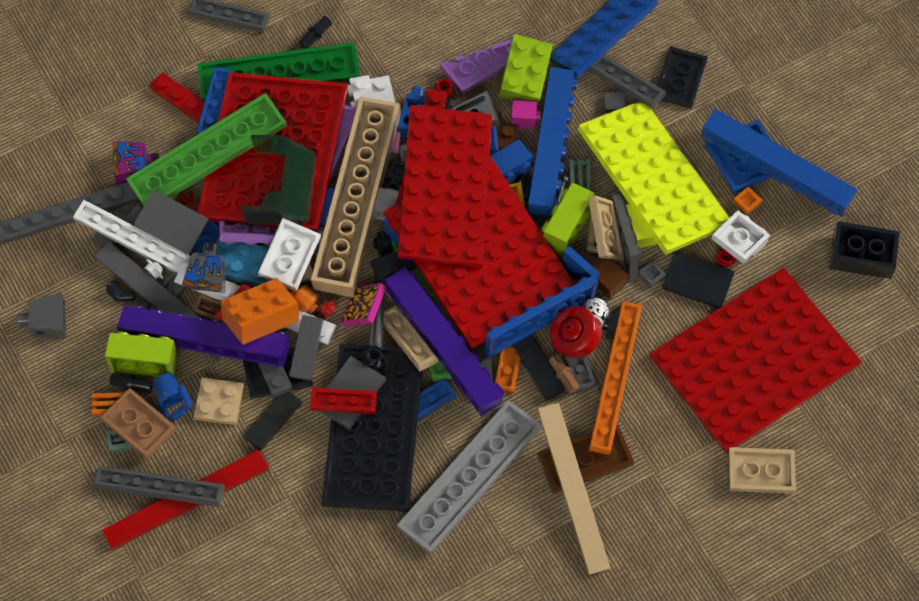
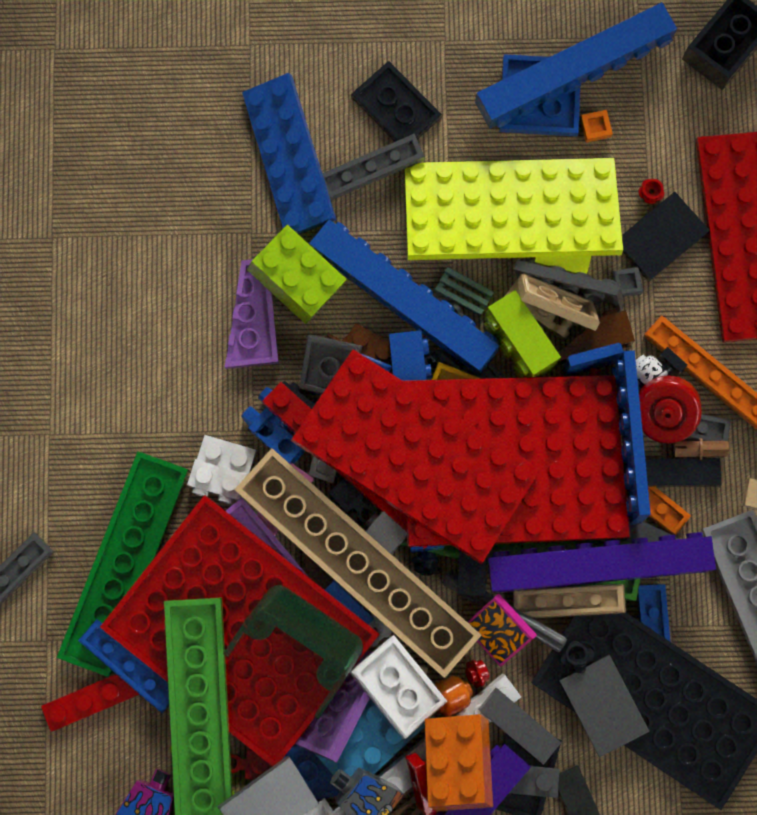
camera: 60 degrees left, 15 degrees up
(315, 32) = (94, 490): black axle -> none
(343, 400) = (618, 721): red plate -> none
(445, 83) = (255, 372): red plate -> none
(525, 114) = (349, 307): dark pink brick -> none
(614, 101) = (387, 196): dark grey tile -> none
(741, 237) = (642, 160): white plate -> none

